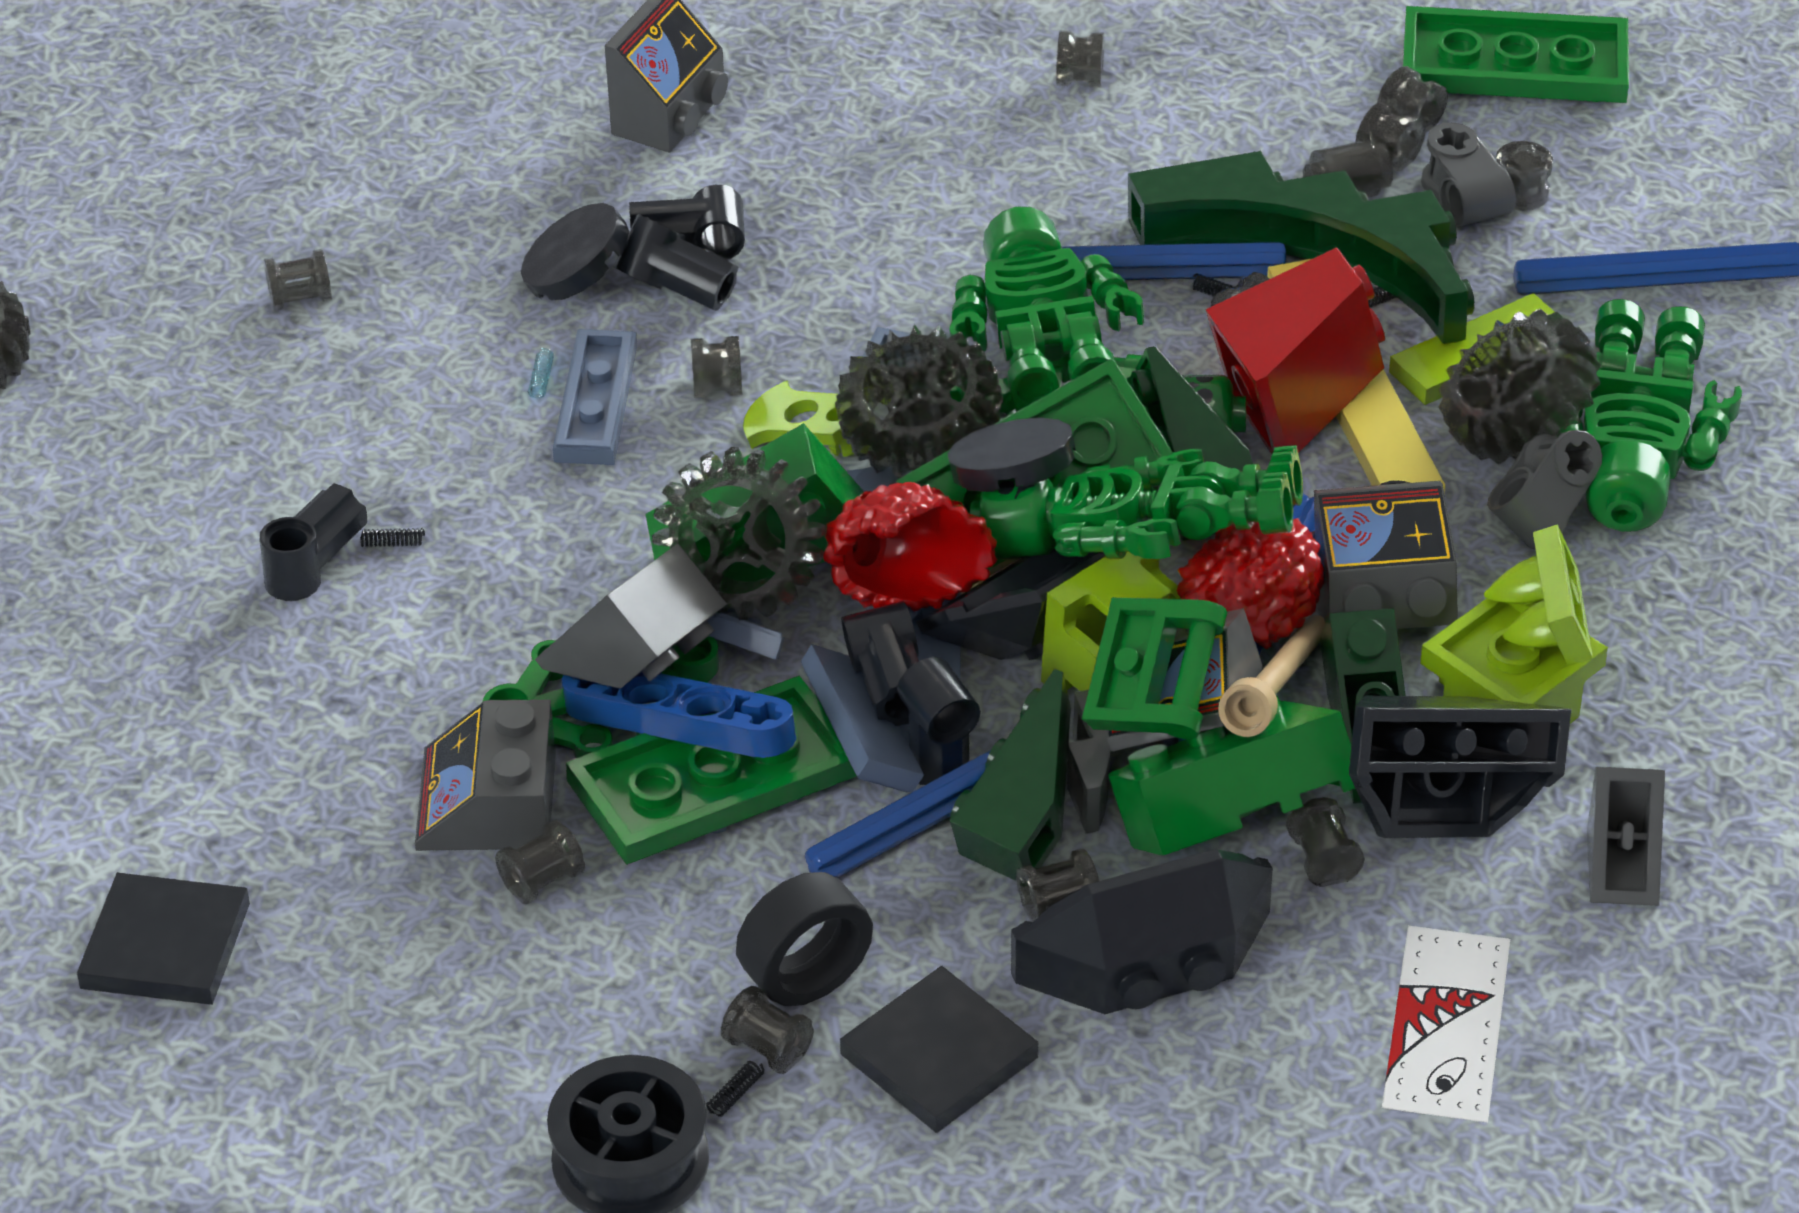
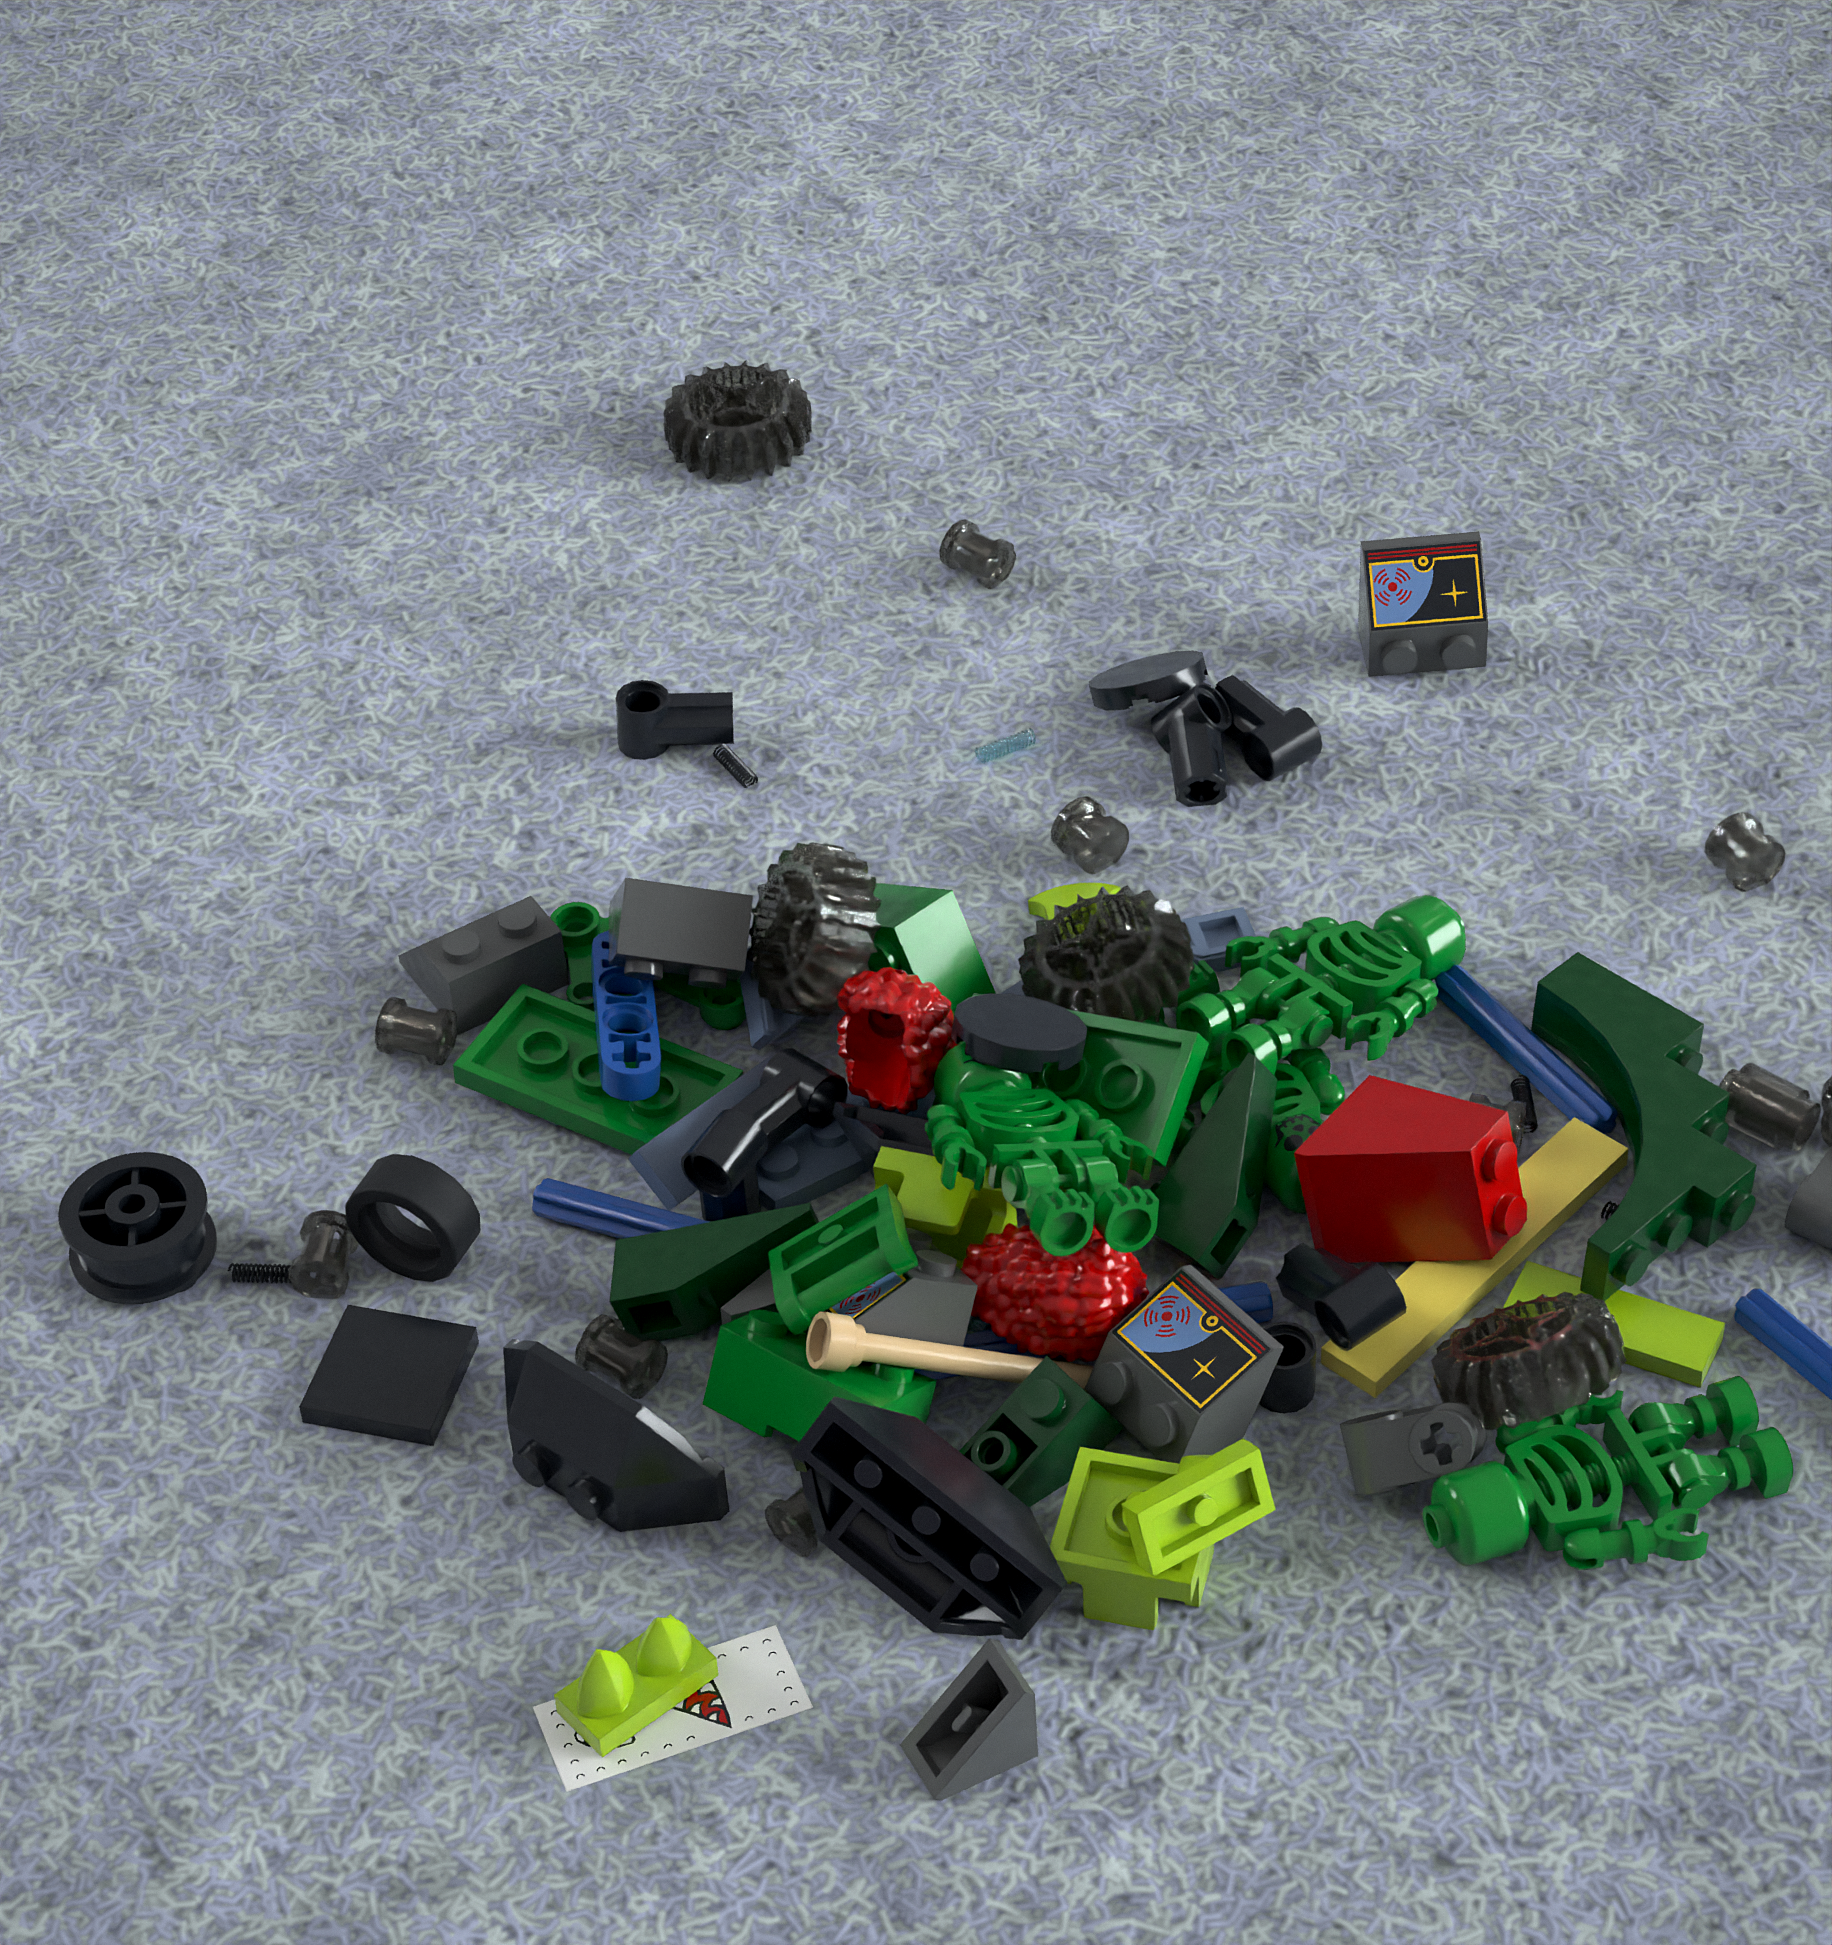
camera: 60 degrees right, 0 degrees up
(163, 938) = (198, 876): black tile -> none
(595, 397) = (1004, 789): sand blue tile -> none
(1377, 450) = (1344, 1299): none -> black piece
(1420, 1025) = (635, 1684): none -> lime tile

